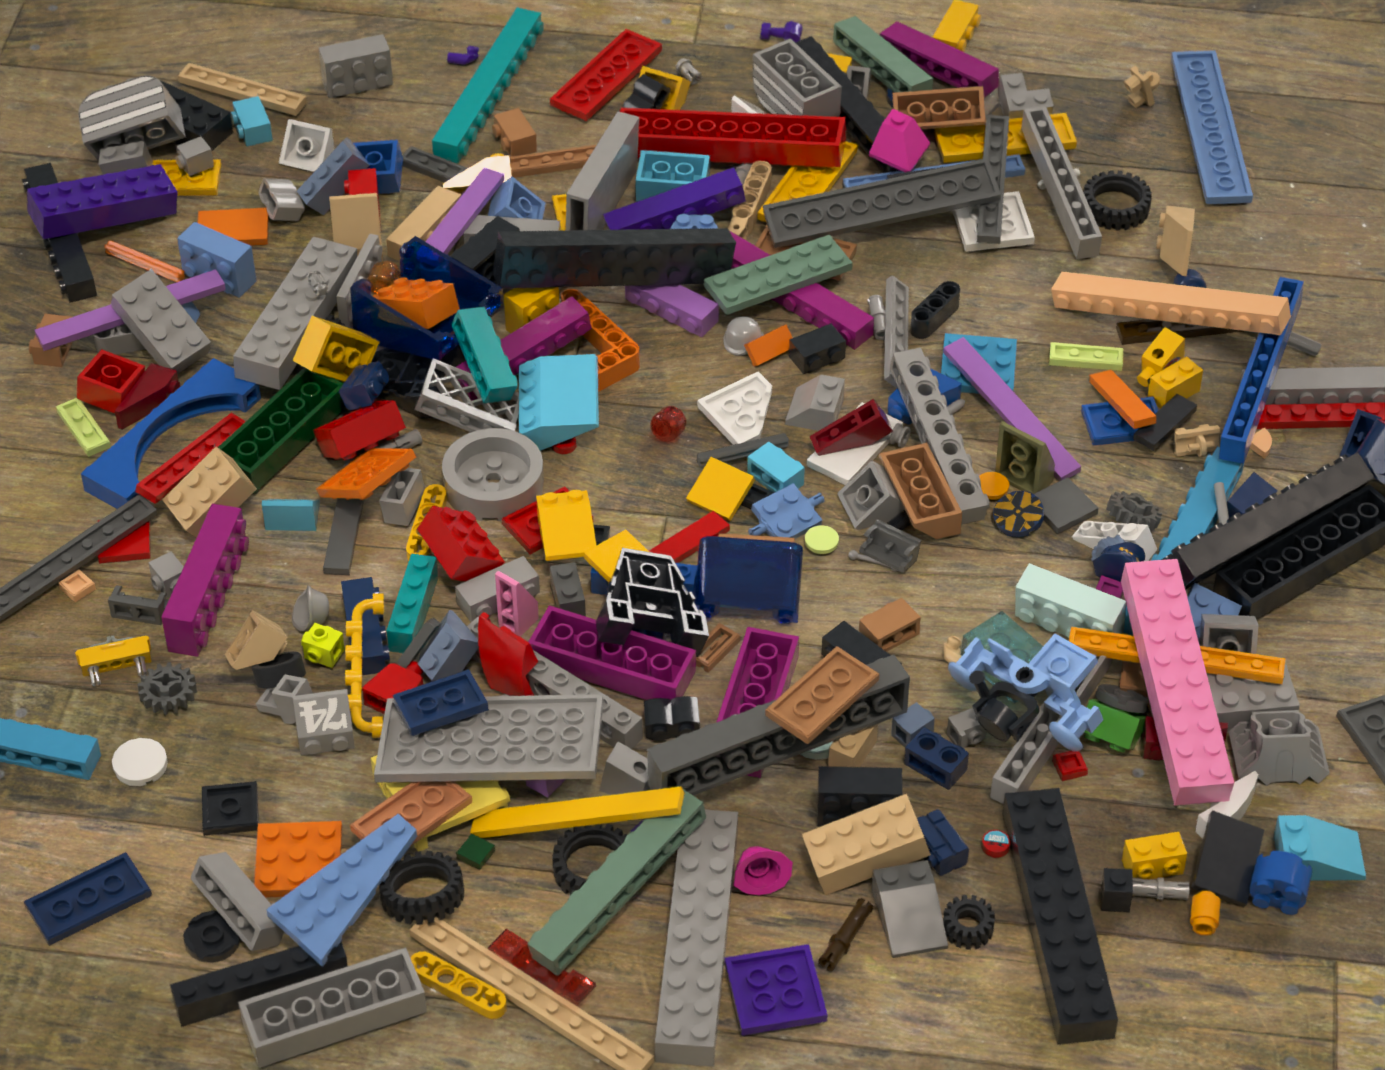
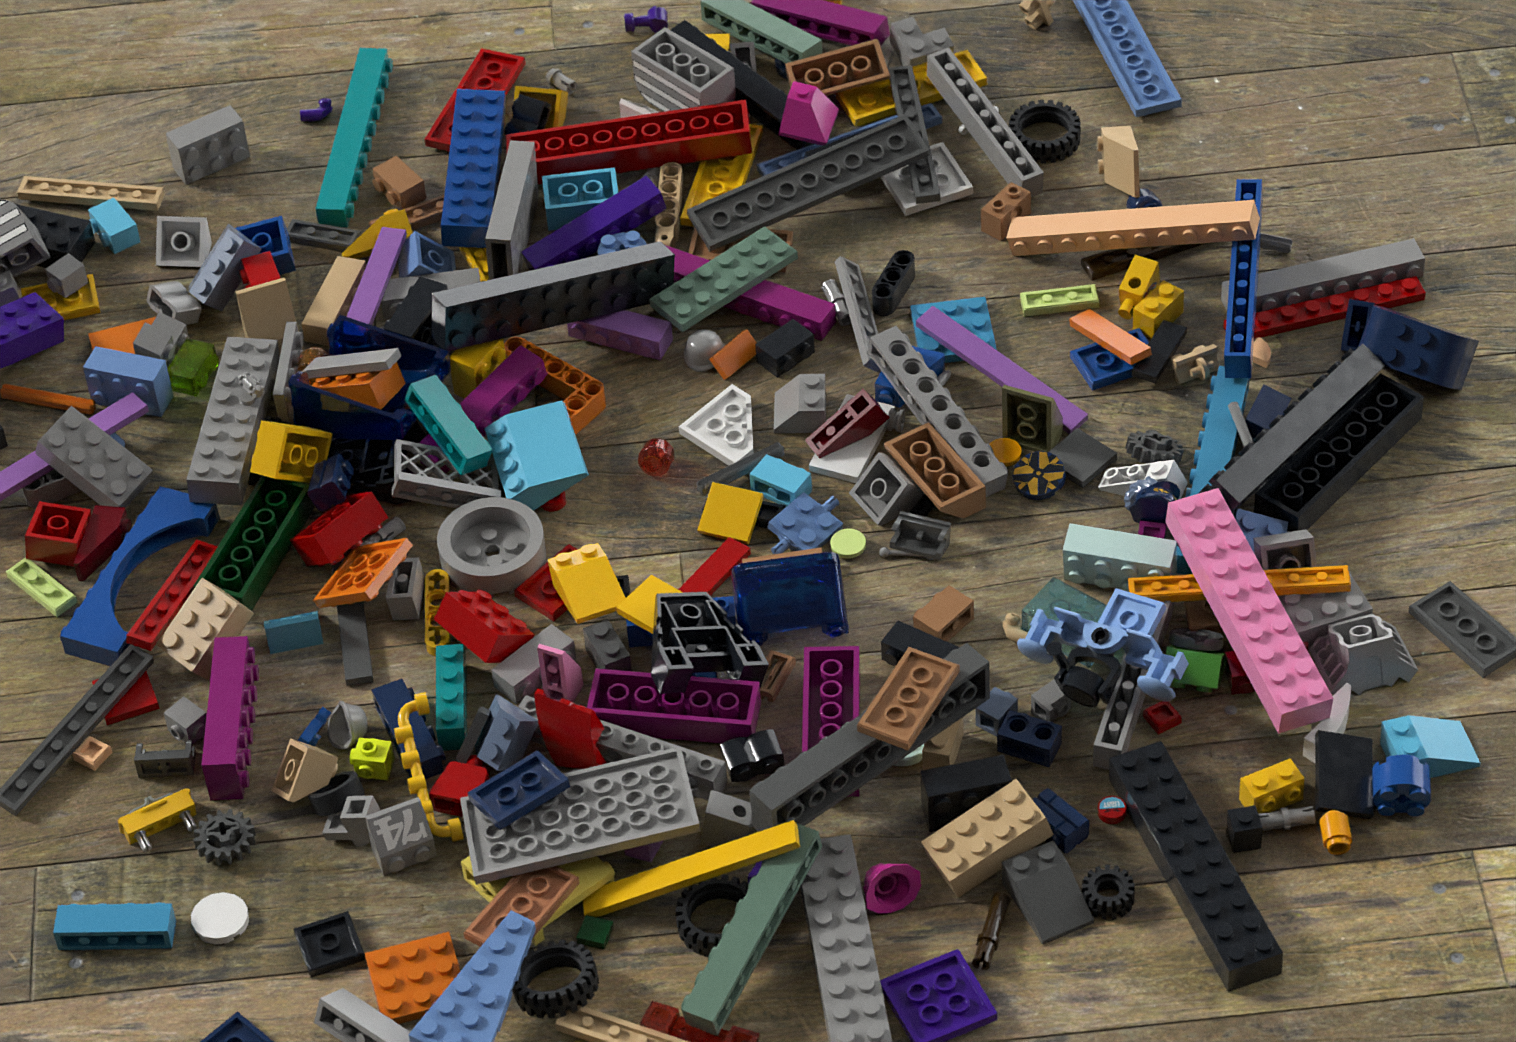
camera: 10 degrees left, 0 degrees up
(257, 229) = (161, 338): none -> light grey brick
(274, 610) = (310, 734): none -> blue plate
(277, 258) = (192, 366): none -> clear neon green brick
(413, 281) = (352, 363): none -> light grey tile
(587, 116) = (473, 167): none -> blue brick
(1062, 258) = (998, 213): none -> medium nougat brick

